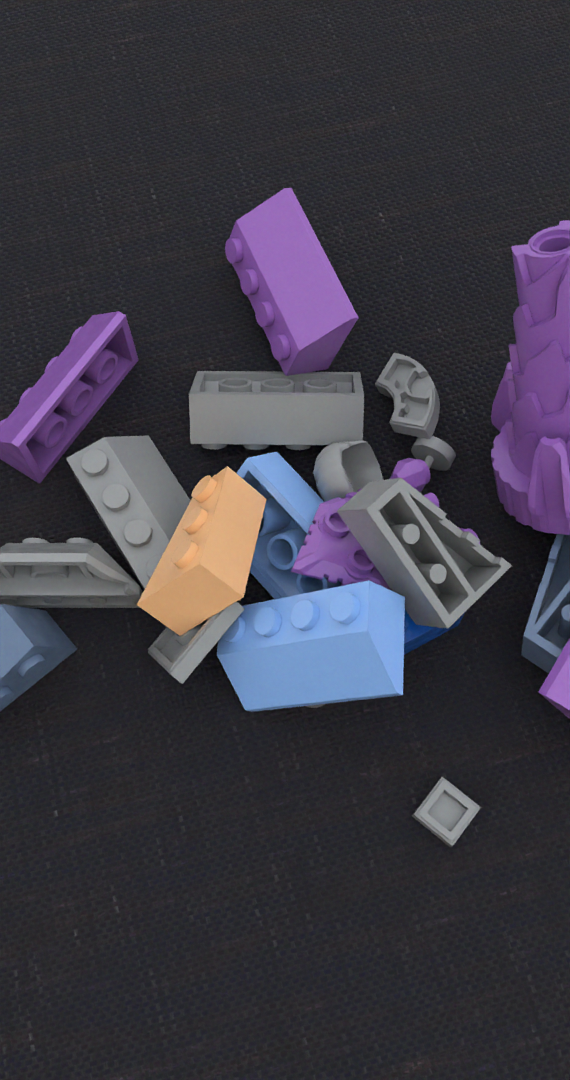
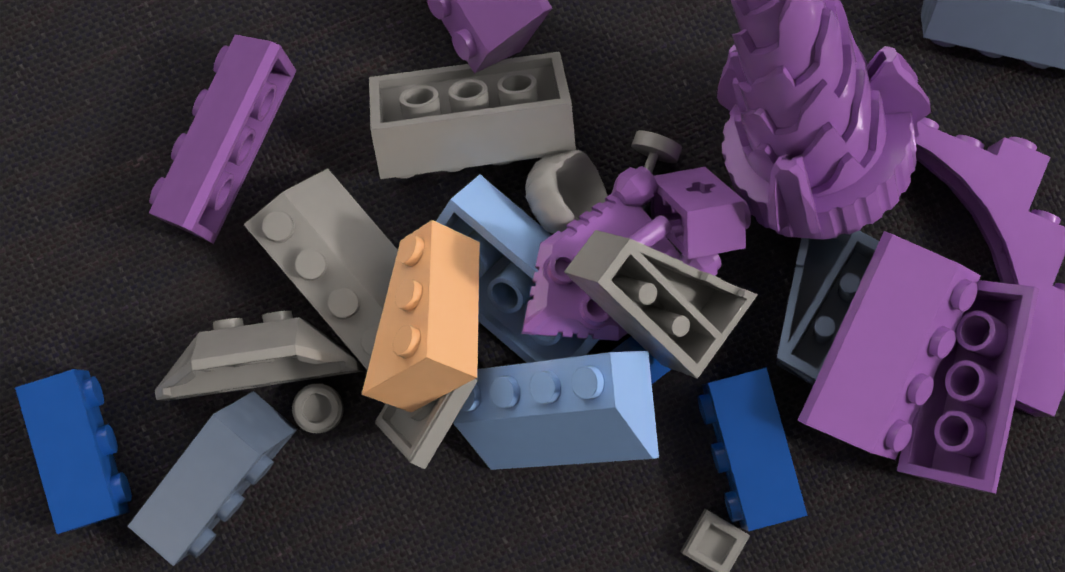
camera: 15 degrees left, 15 degrees up
(98, 631) = (317, 408): none -> light grey tile
(413, 396) = (626, 81): light grey tile -> none
(471, 501) = (702, 212): none -> medium lavender brick
(491, 725) = (752, 450): none -> blue brick

